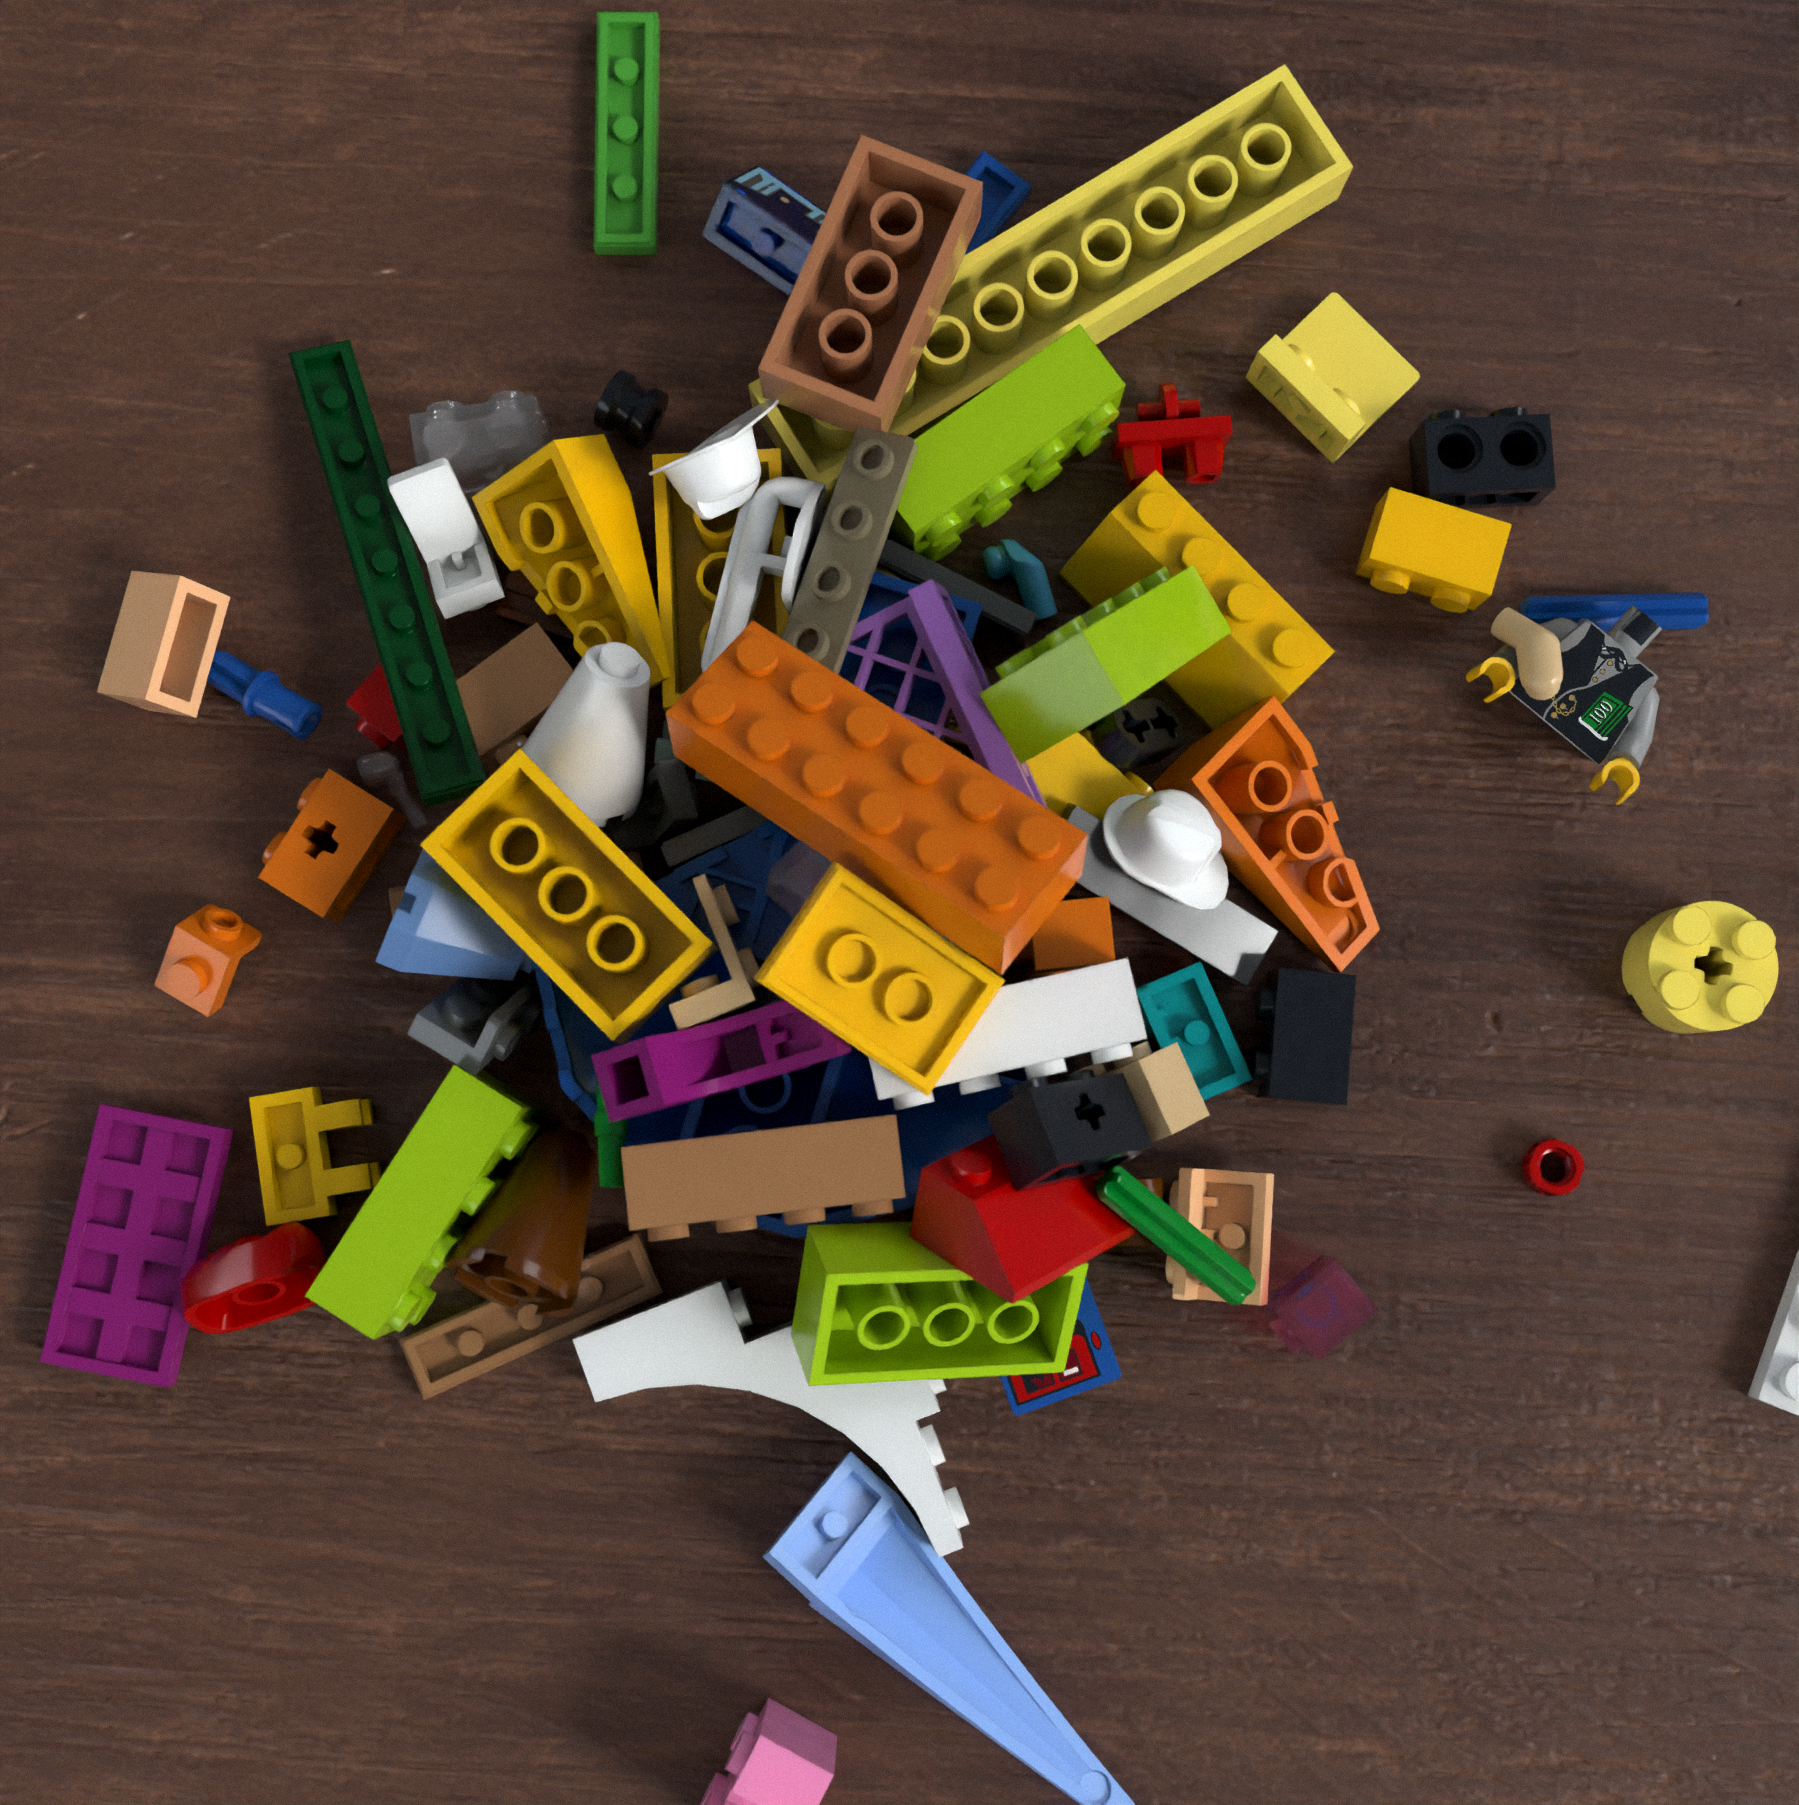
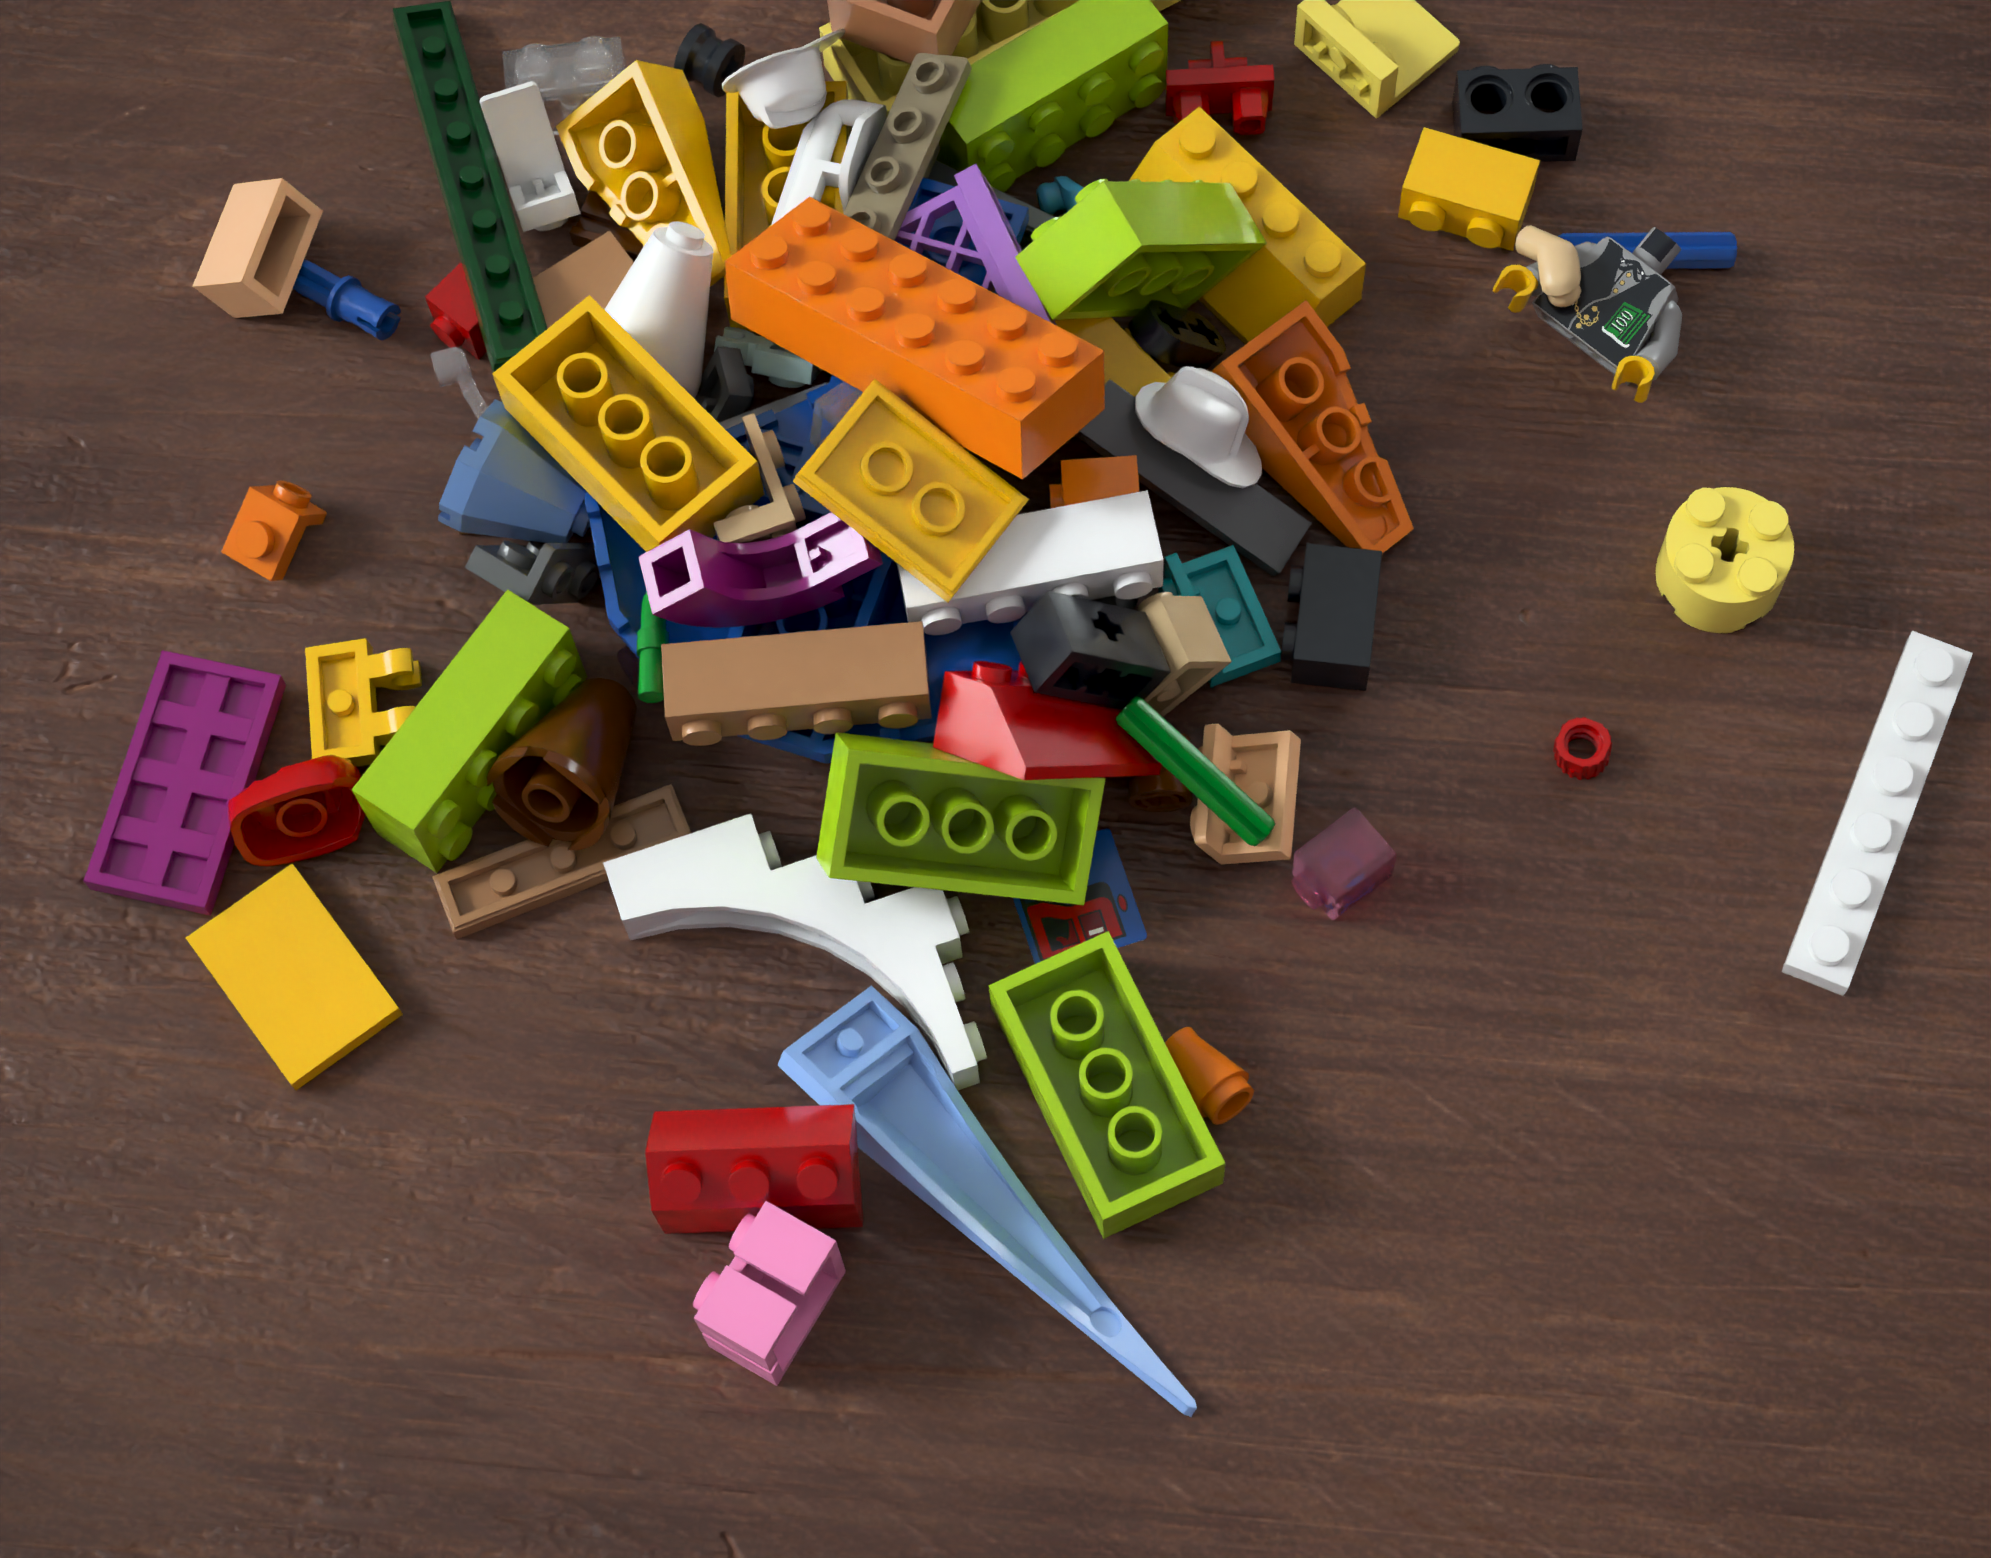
camera: 10 degrees right, 15 degrees down
(265, 1448) = (294, 976): none -> yellow tile
(305, 869) = (402, 429): orange brick -> none
(743, 1672) = (726, 1162): none -> red slope
(1092, 1562) = (1106, 1084): none -> lime brick
(1189, 1534) = (1213, 1080): none -> orange cone

